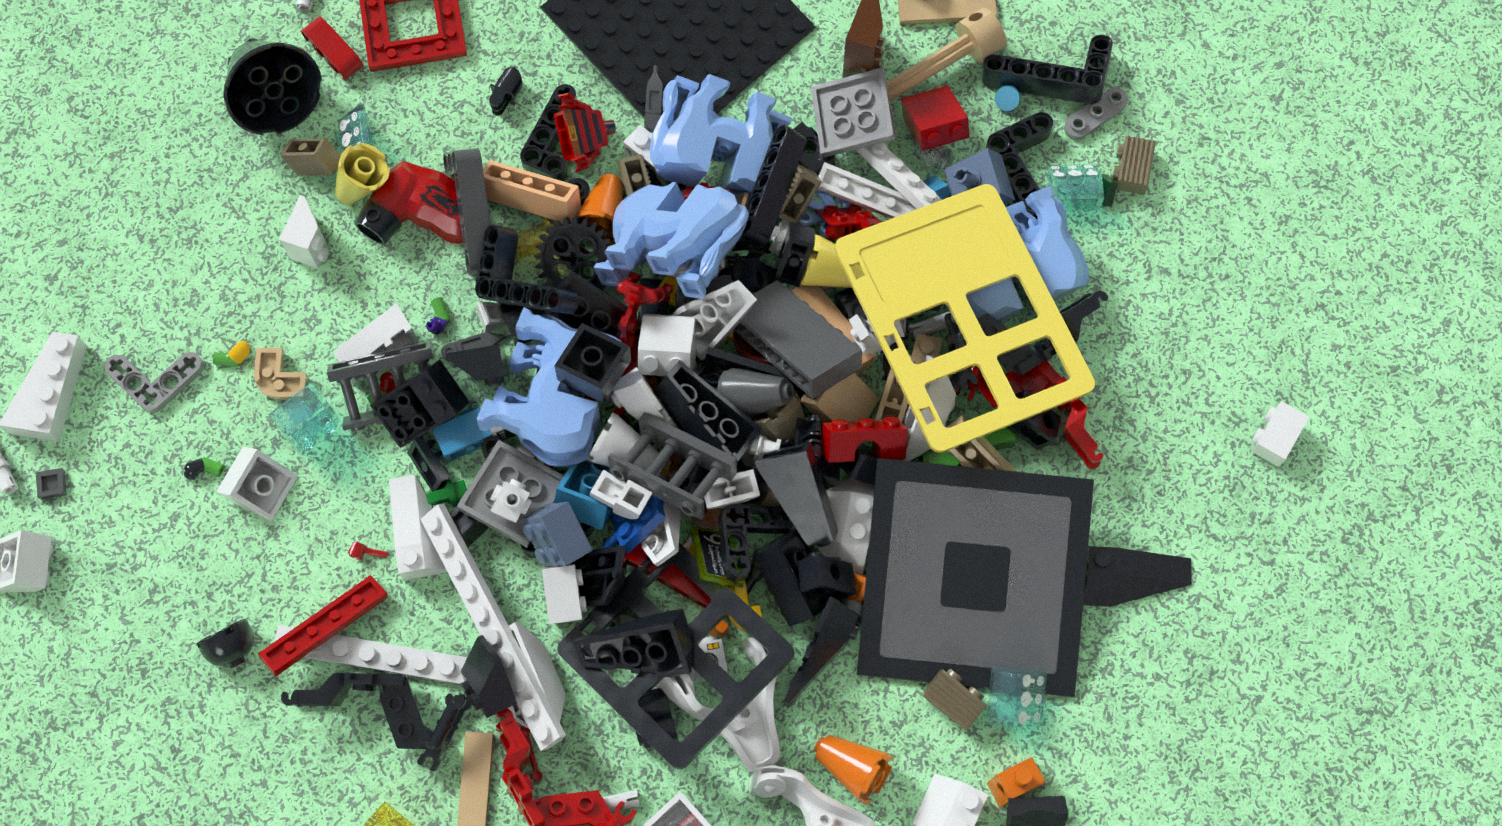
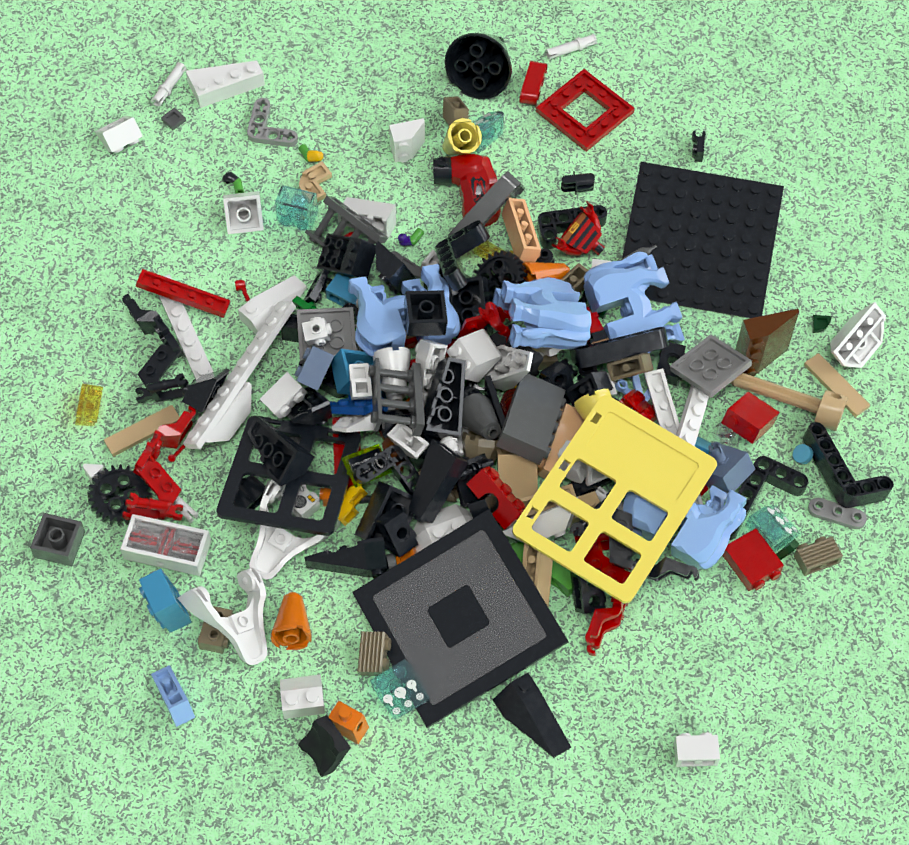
camera: 55 degrees right, 10 degrees down
(228, 644) = (139, 255): black cylinder -> none
(1101, 229) = (753, 560): none -> red brick

